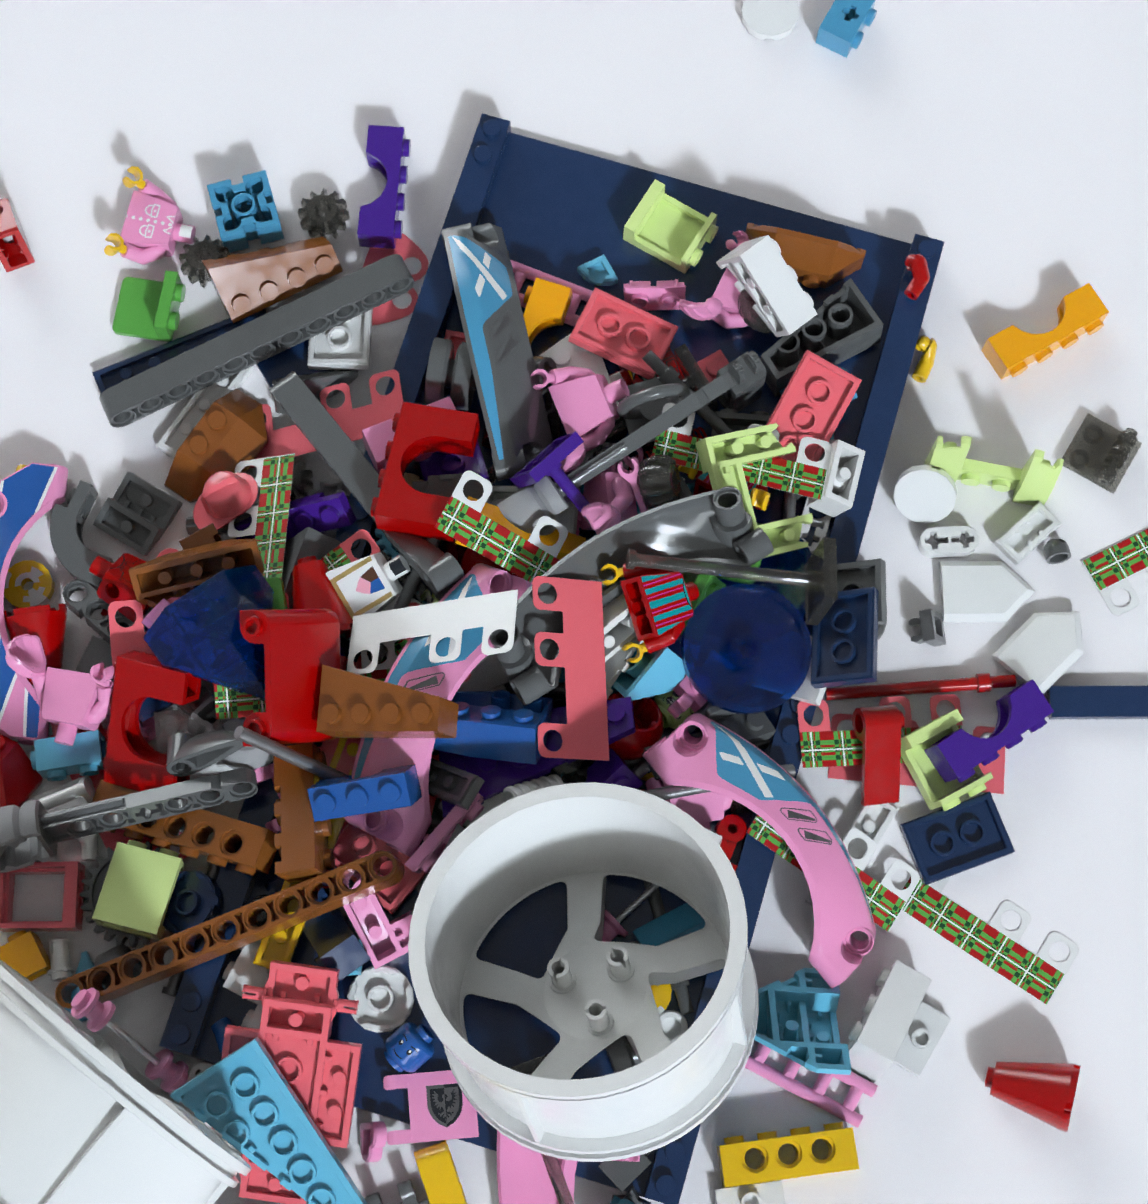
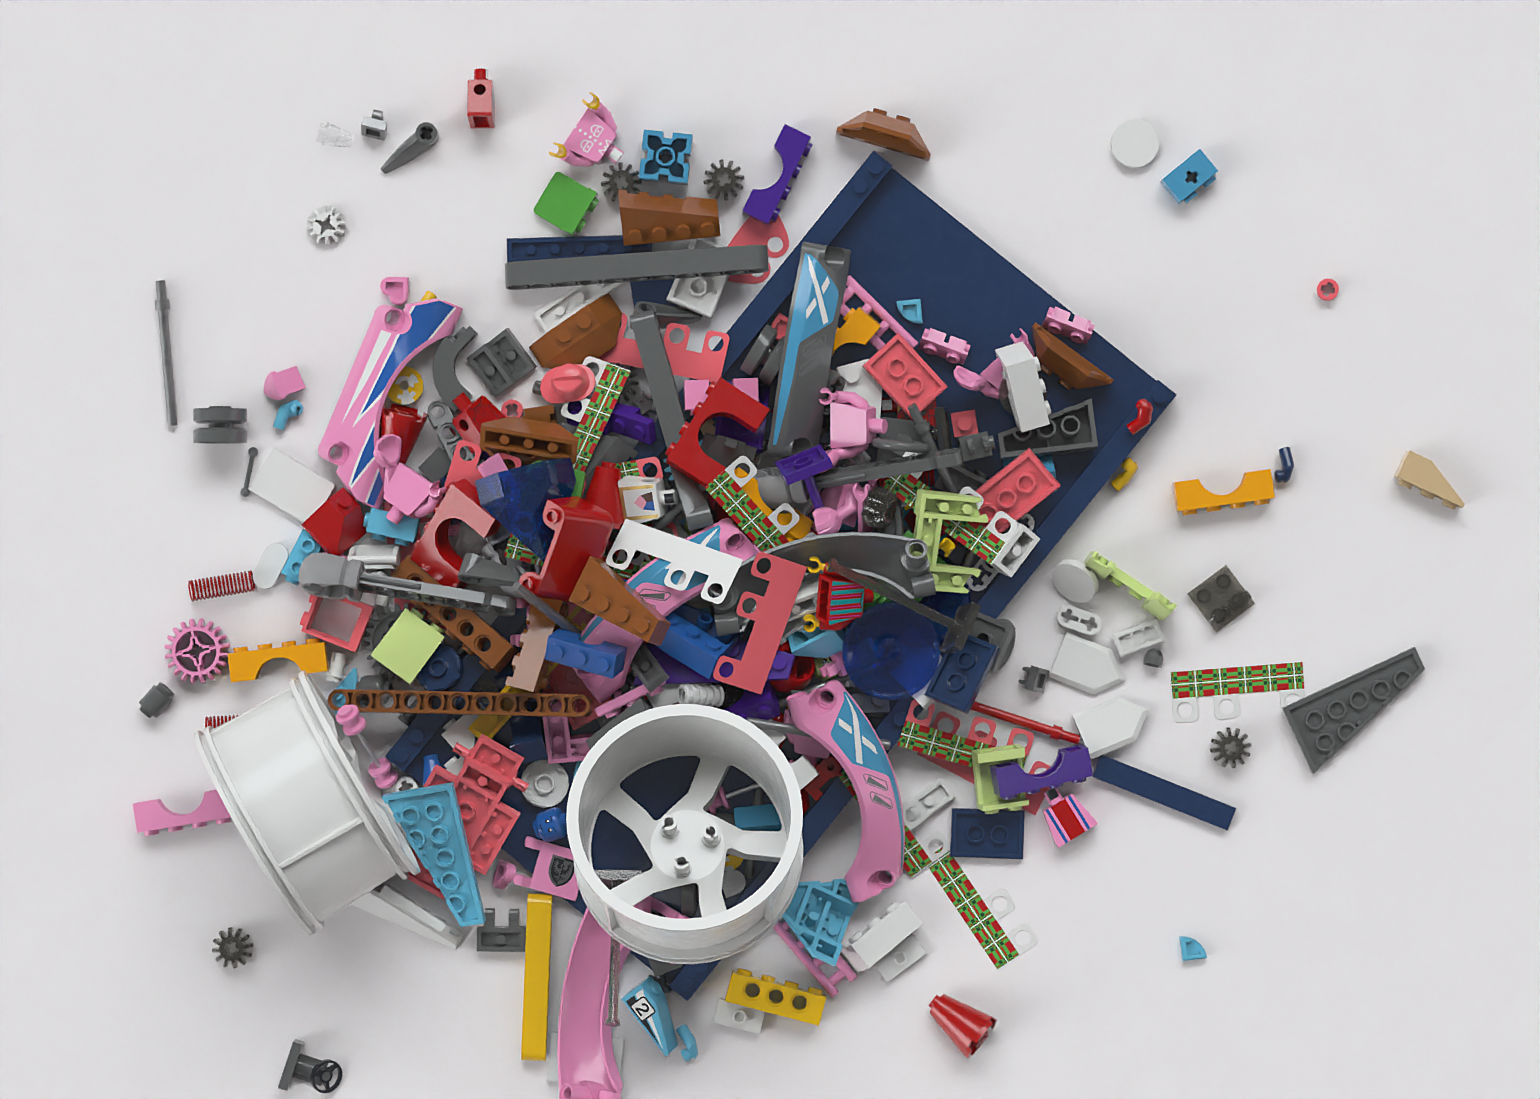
camera: 25 degrees right, 15 degrees up
(496, 94) = (886, 132): none -> dark orange wedge
(669, 229) = (978, 299): yellowish green panel -> none
(796, 218) = (1078, 330): none -> bright pink hinge
(881, 752) = (960, 747): red door -> none
(1043, 777) = (1066, 817): none -> torso
(1055, 72) = (1331, 296): none -> coral bush
(1103, 278) = (1287, 466): none -> dark blue arm

